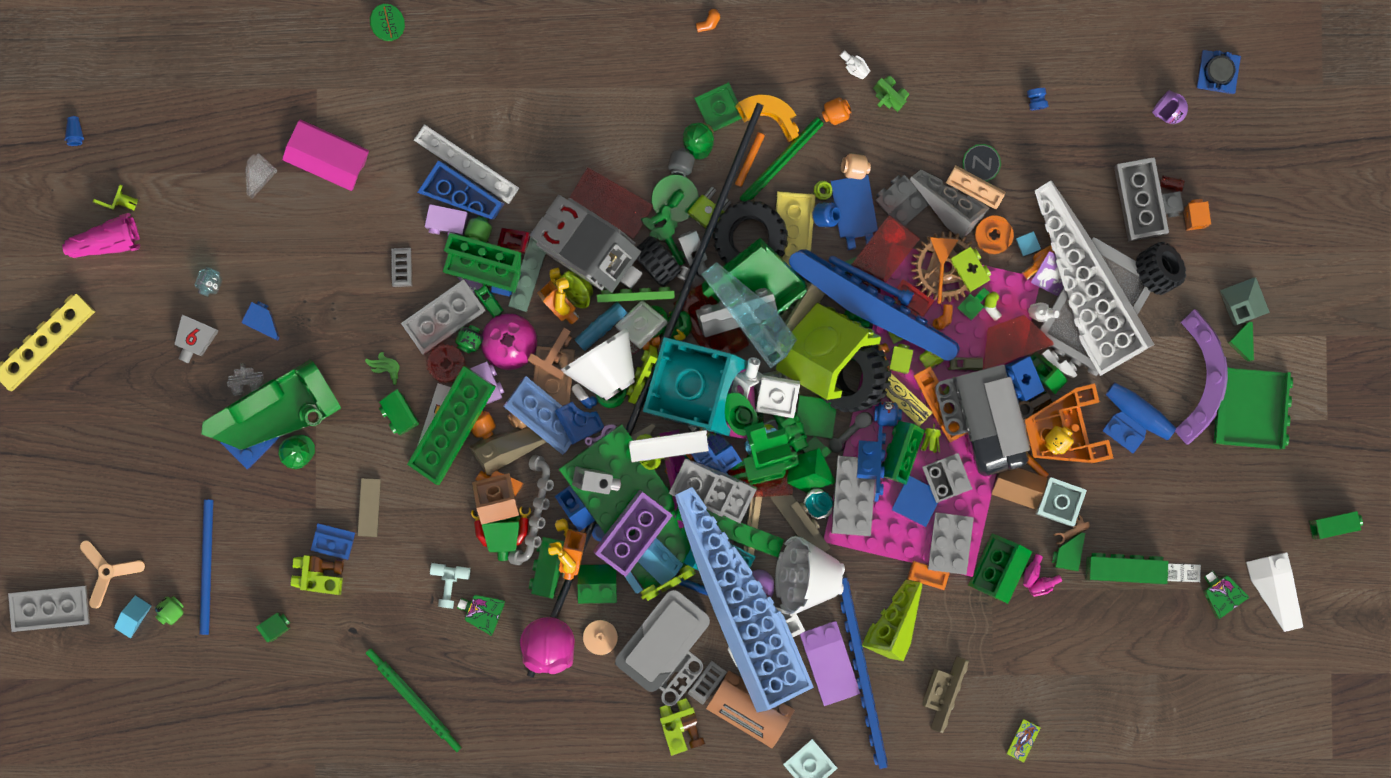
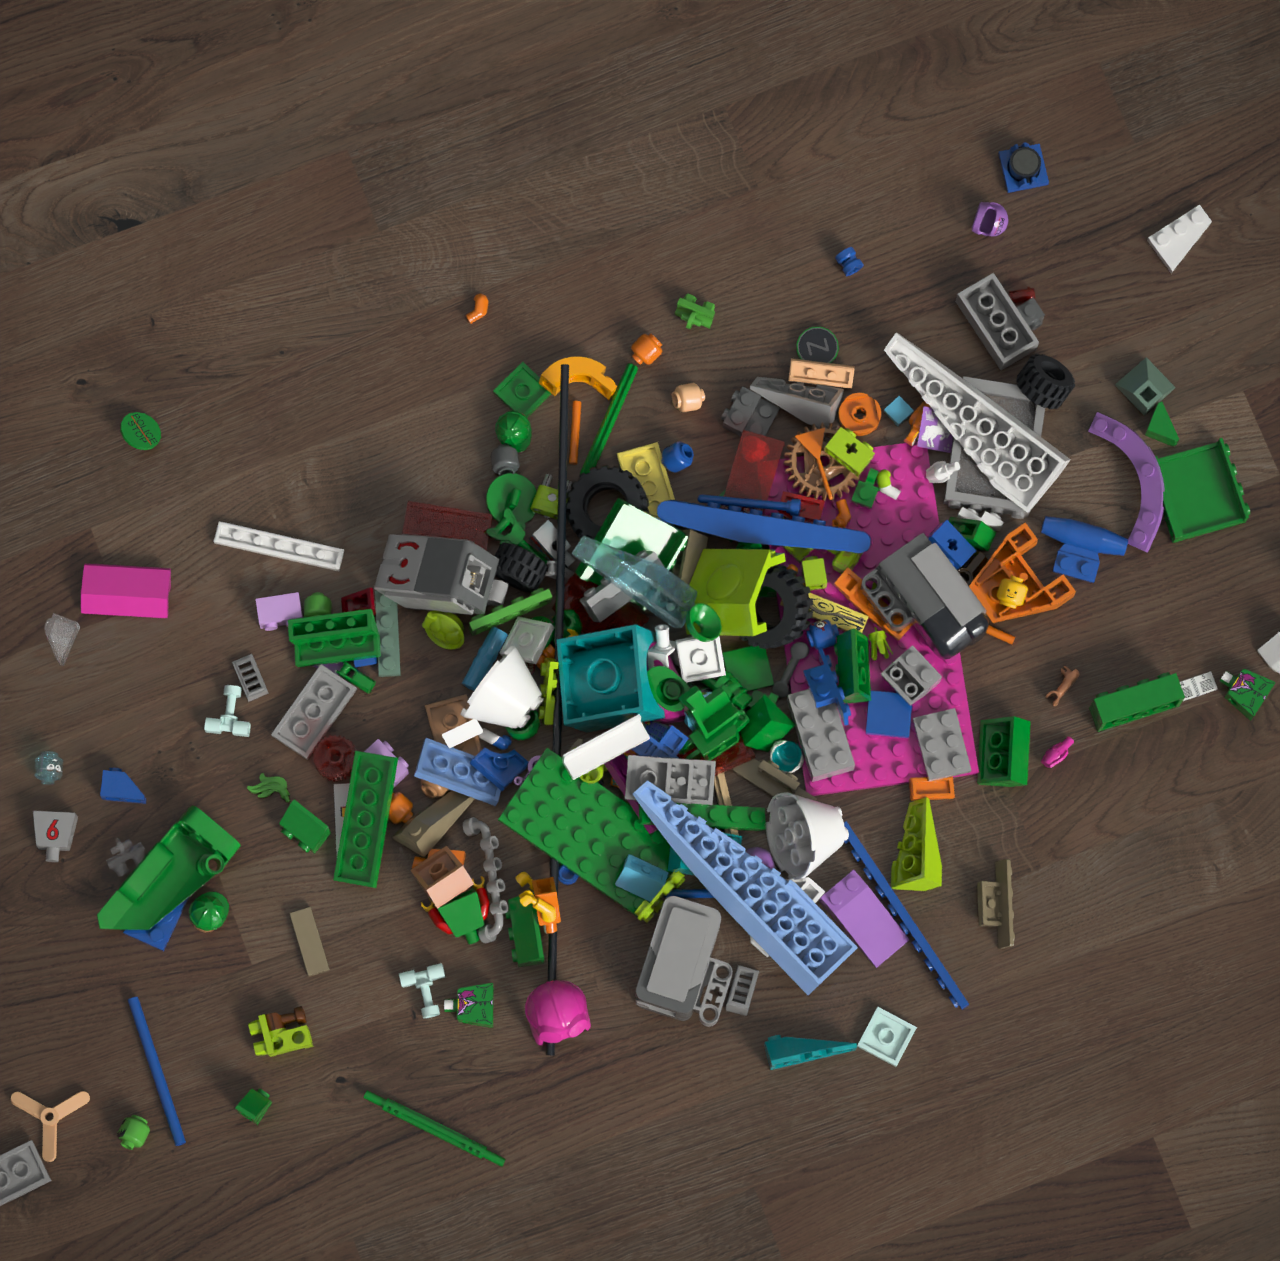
camera: 20 degrees left, 10 degrees down
(132, 616) = (95, 1155): medium azure slope -> none
(333, 541) = (284, 991): blue plate -> none
(369, 298) = (228, 721): none -> light aqua bar
(455, 189) = (282, 575): blue wedge -> none
(469, 339) = (350, 724): green head -> none
(511, 352) = (401, 720): dark pink piece -> none
(554, 355) = (447, 707): nougat bracket -> none
(555, 298) = (427, 645): torso -> none
(557, 384) = (462, 733): none -> white sticker
(574, 508) = (530, 856): blue brick -> none
(595, 480) = (541, 814): light grey torso -> none
(597, 584) = (585, 930): green slope -> none
(600, 637) = (609, 985): light nougat piece -> none
(619, 547) = (606, 834): medium lavender brick -> none
(633, 582) = (615, 907): medium azure tile -> none
(676, 724) = (726, 1044): lime hips -> none
(726, 749) = (792, 1051): none -> teal wedge
(736, 707) = (784, 1001): nougat brick -> none
(794, 371) = (707, 620): none -> green piece
(828, 190) = (665, 429): lime plate -> none
(855, 65) = (647, 296): white piece -> none
(856, 209) = (707, 440): blue tile -> none
(969, 363) = (884, 552): olive bar -> none
(1013, 340) = (924, 510): clear red wing -> none
(1020, 487) = (990, 660): medium nougat piece -> none
(1023, 740) = (1101, 923): tile -> none
(1032, 572) = (1039, 742): dark pink piece -> none
(1061, 502) = (1039, 658): light aqua brick -> none
(1069, 554) = (1070, 710): green slope -> none
(1197, 215) = (1060, 315): orange brick -> none
(1326, 182) = (1179, 236): none -> white wing

